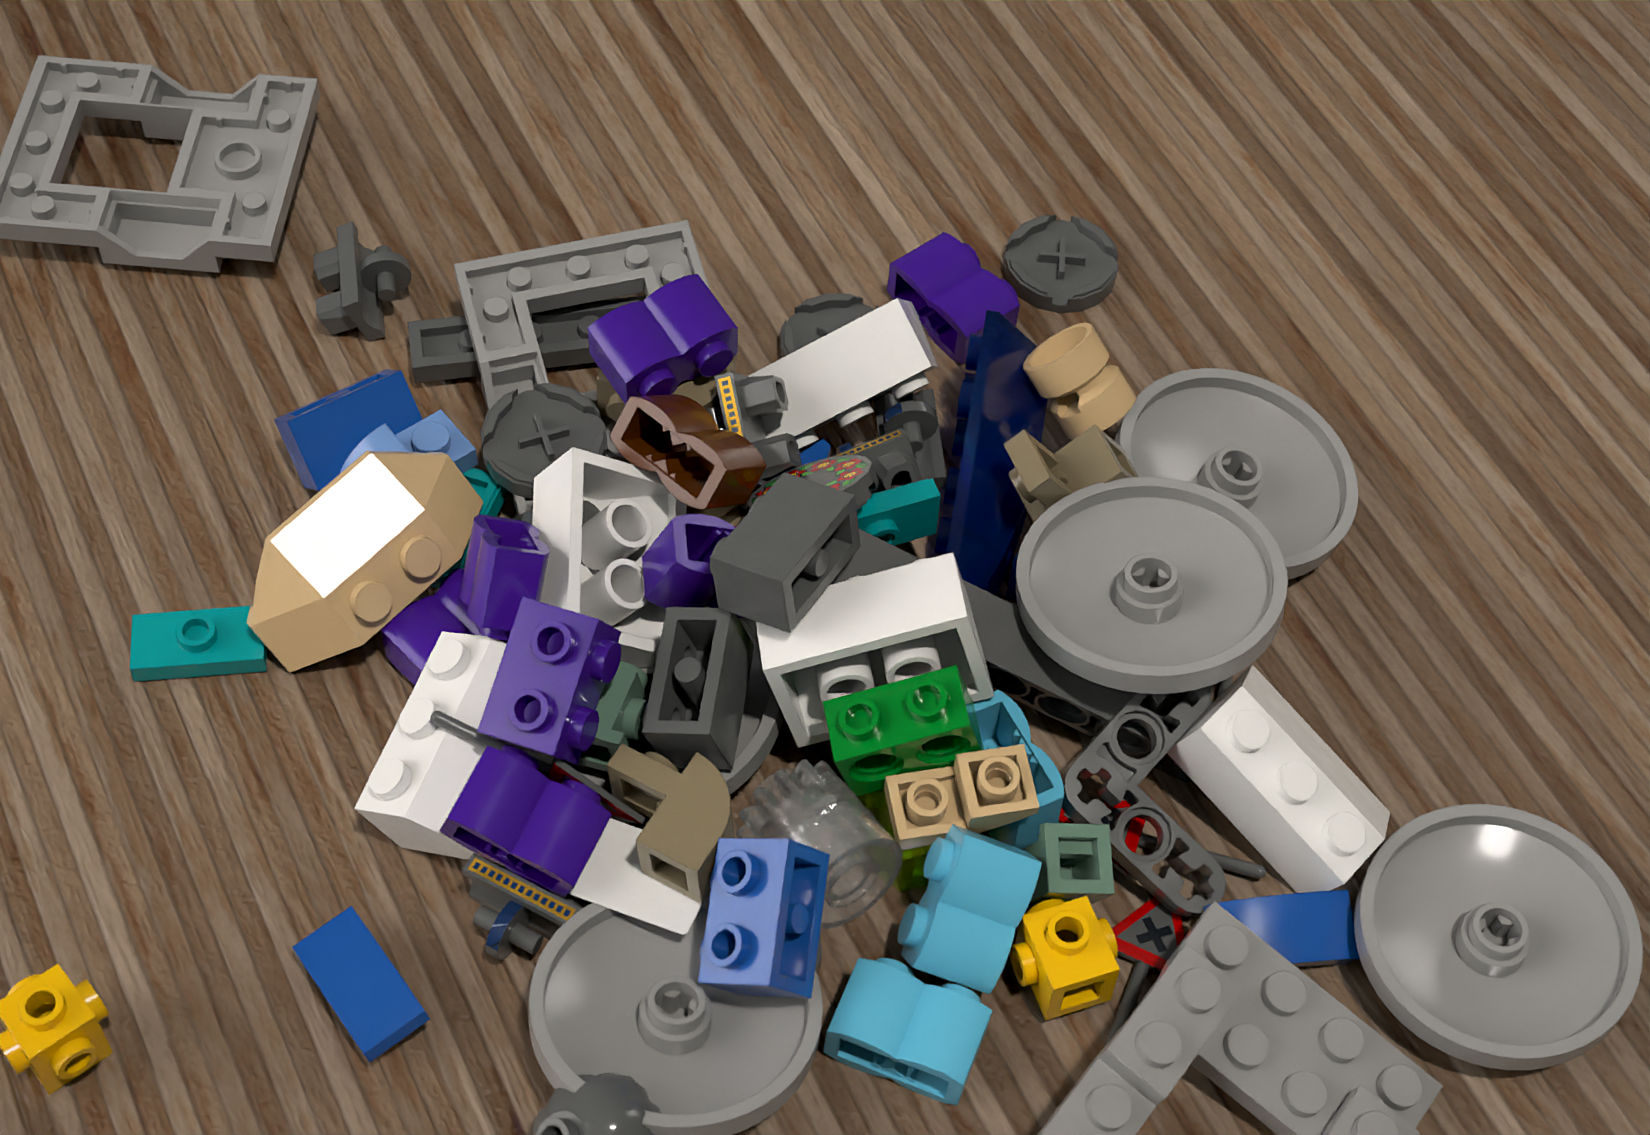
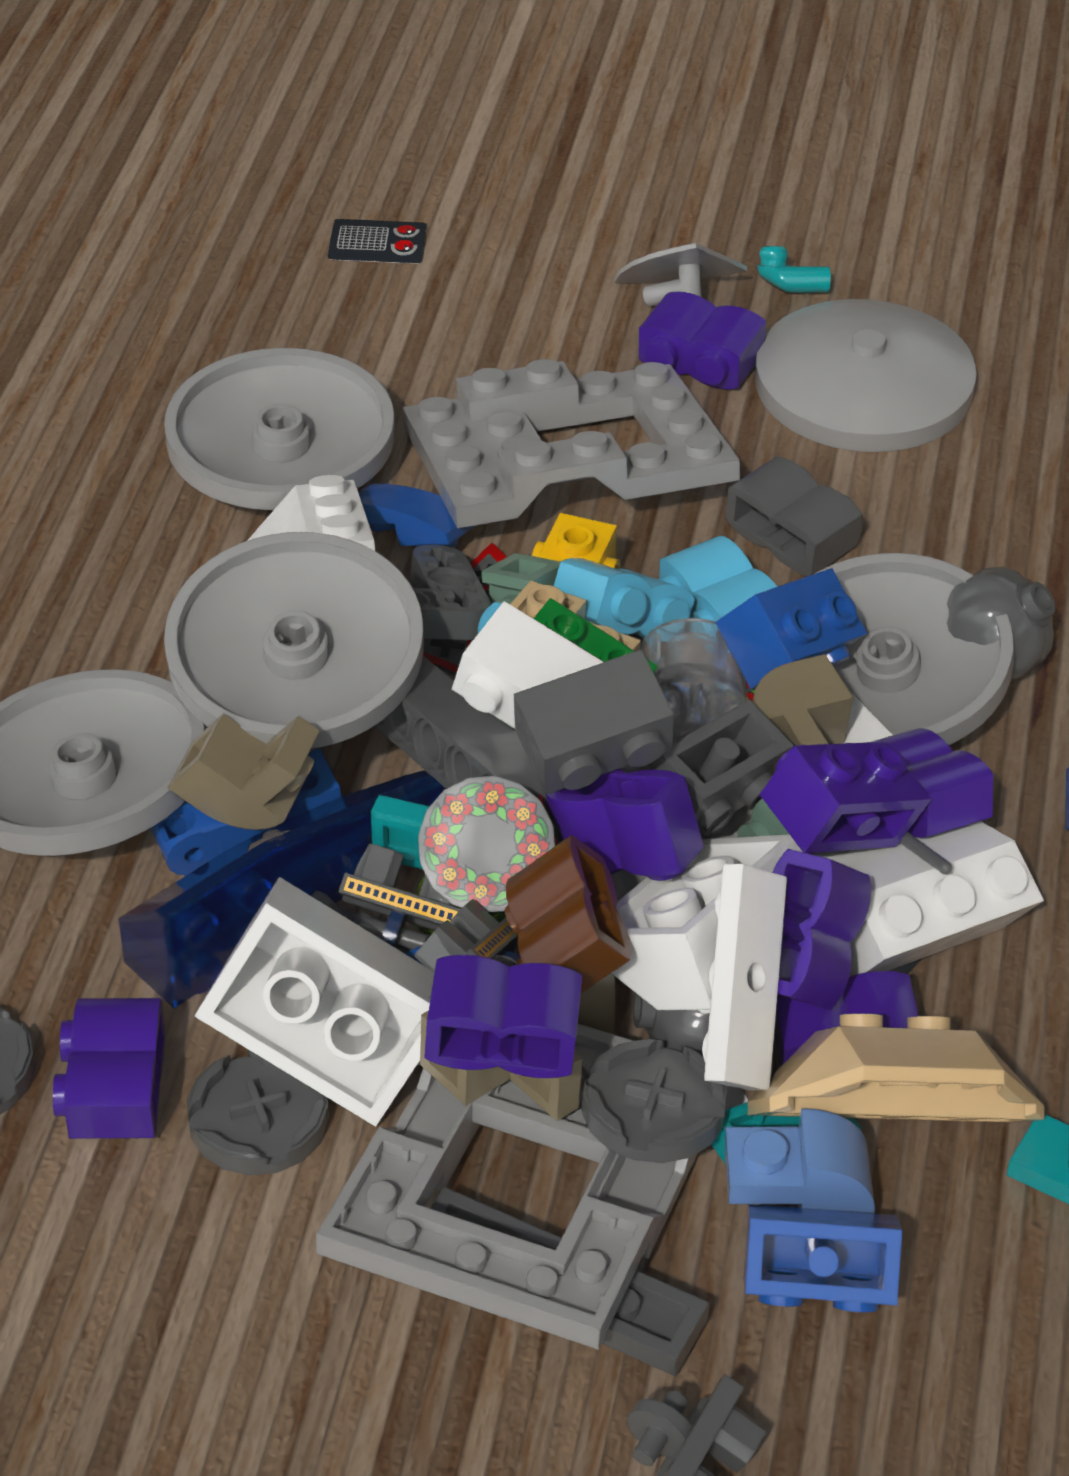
camera: 140 degrees left, 10 degrees down
(520, 489) = (745, 977): none -> white tile
(1076, 376) = (136, 856): tan wheel -> none

